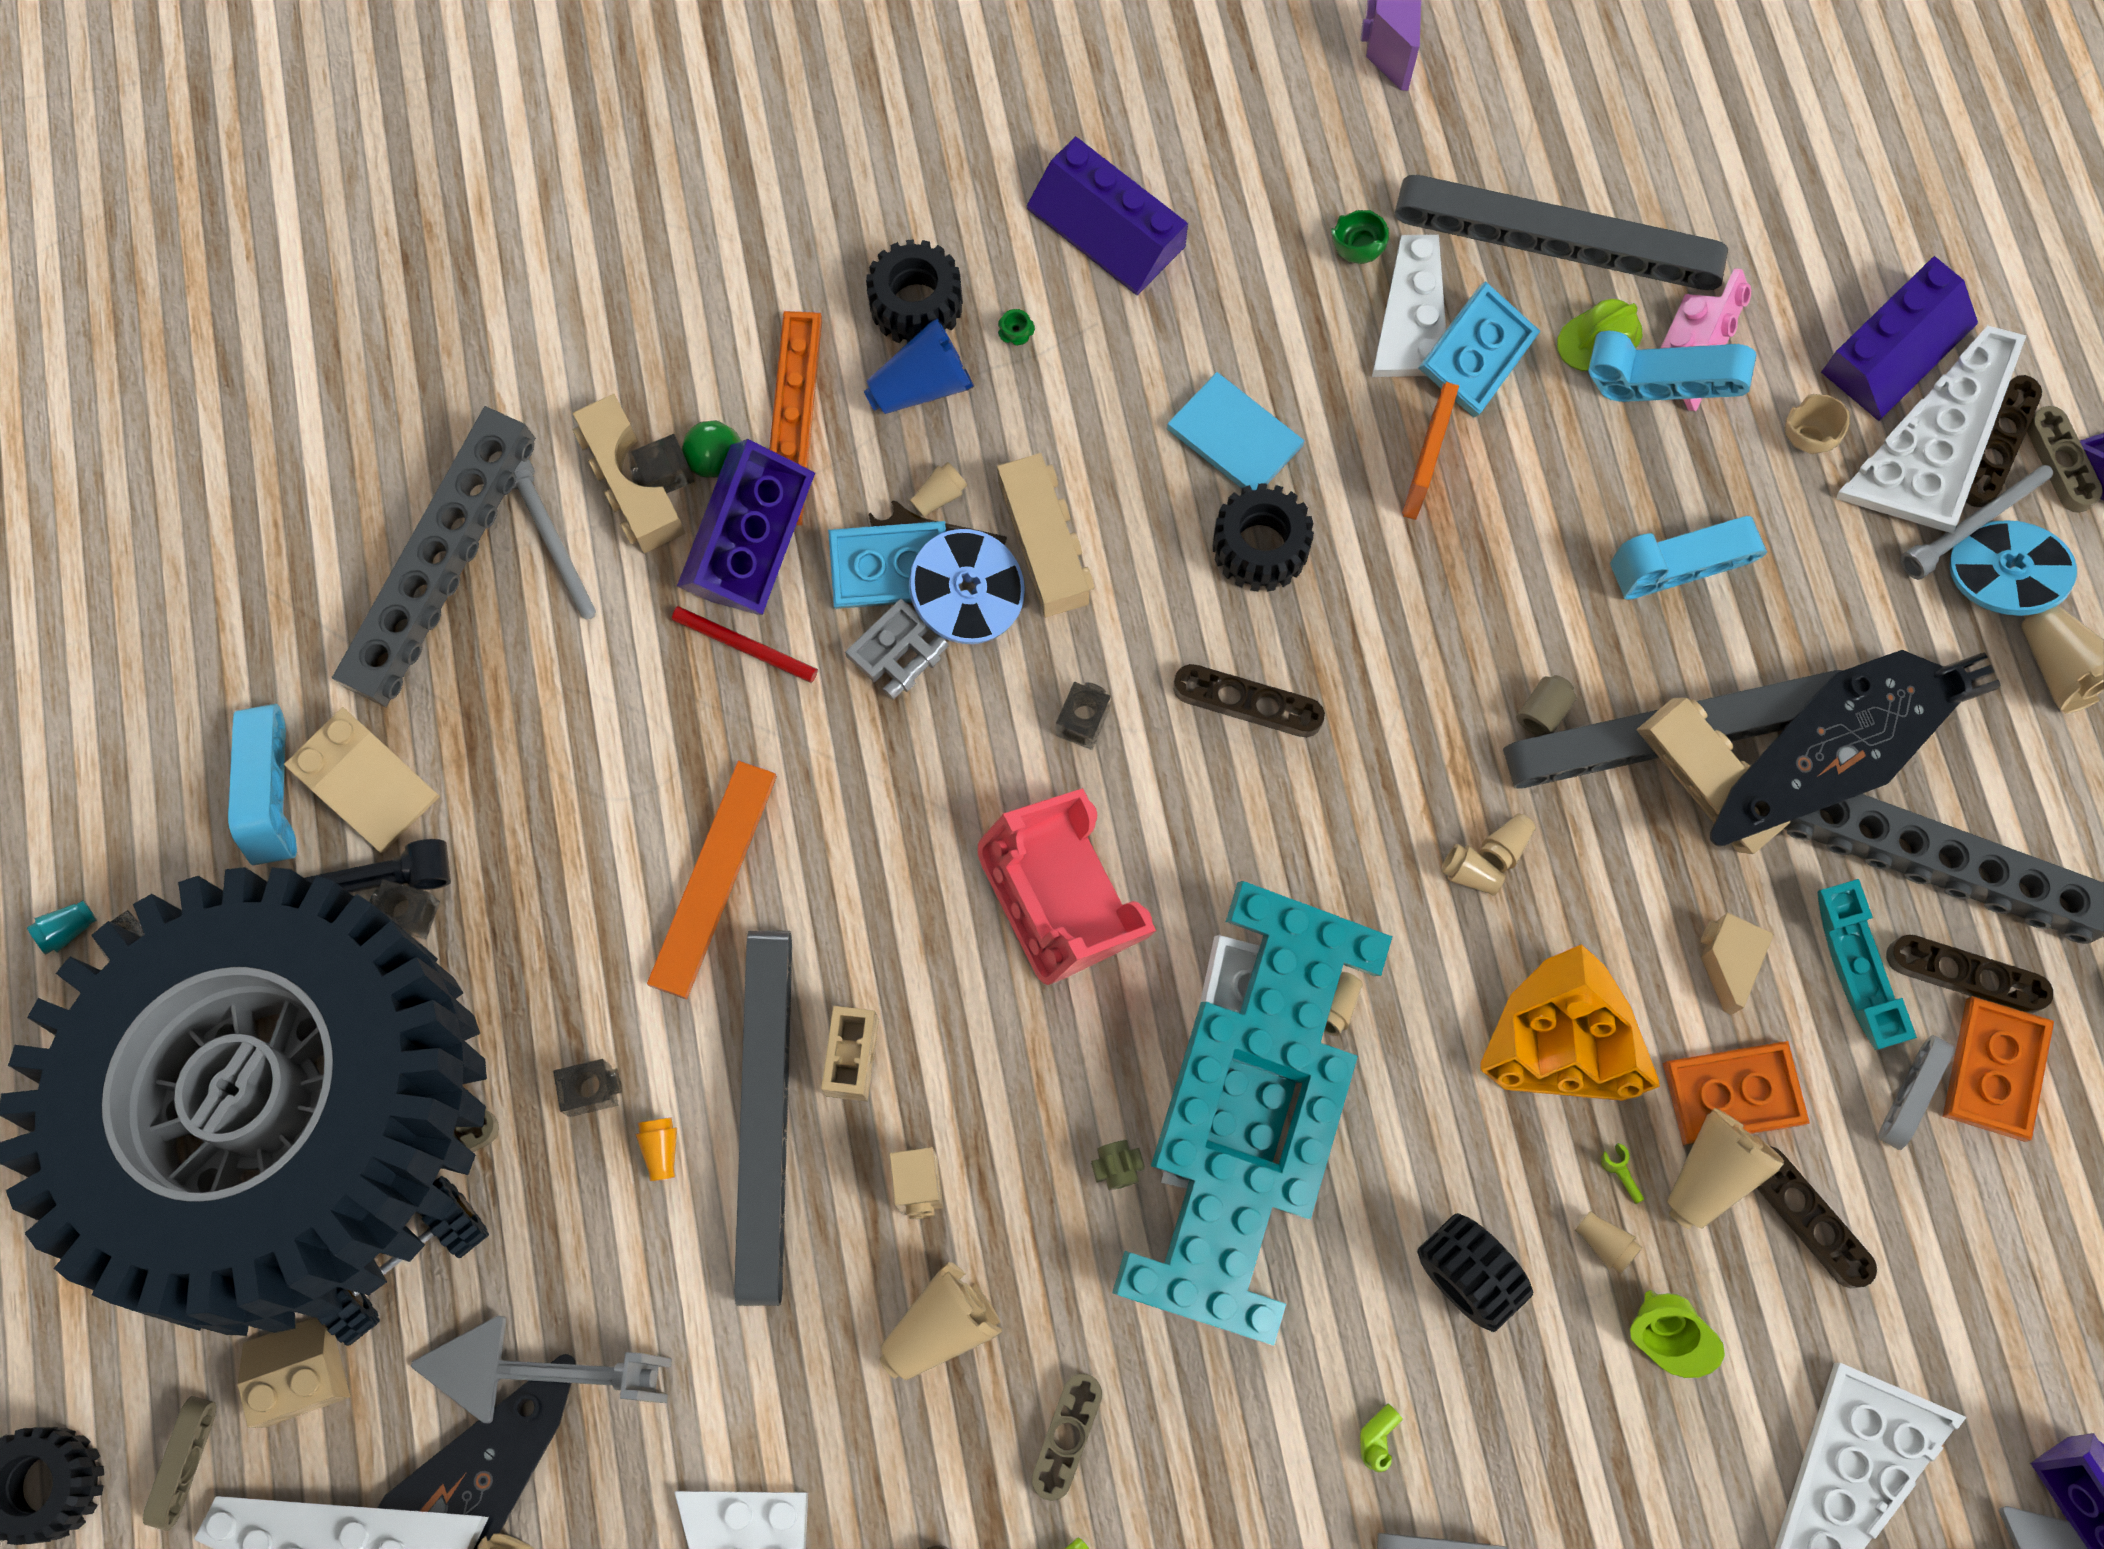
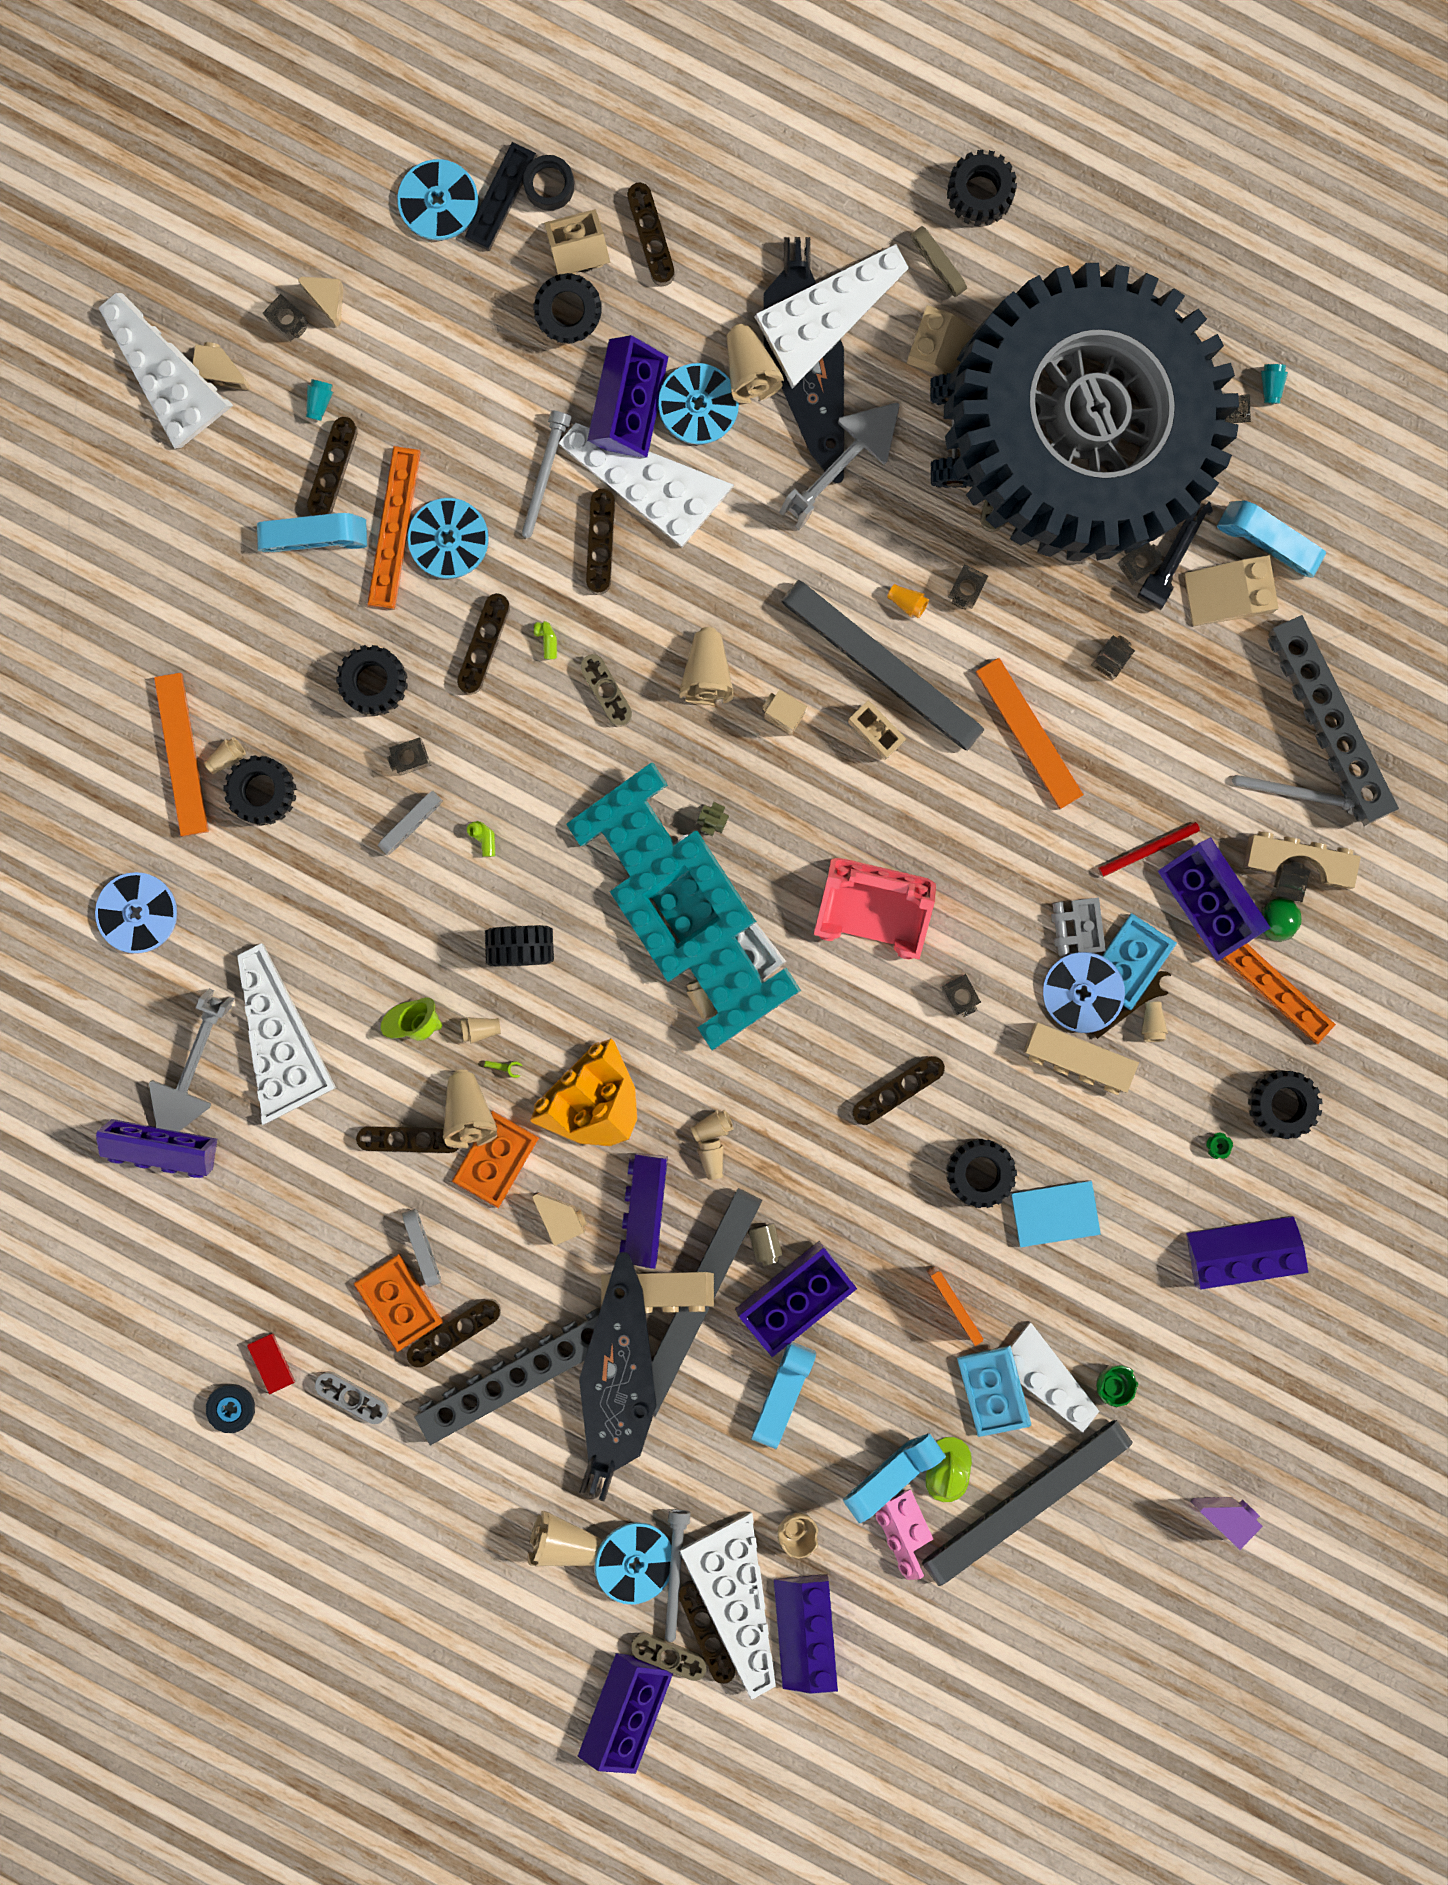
camera: 130 degrees right, 15 degrees up
(544, 852) = (1113, 656): none -> clear smoke brick
(919, 372) = (1231, 1068): blue cone -> none
(1579, 623) = (795, 1299): none -> dark purple slope
(1636, 865) = (645, 1208): none -> dark purple slope
(1859, 966) = (502, 1280): teal slope -> none

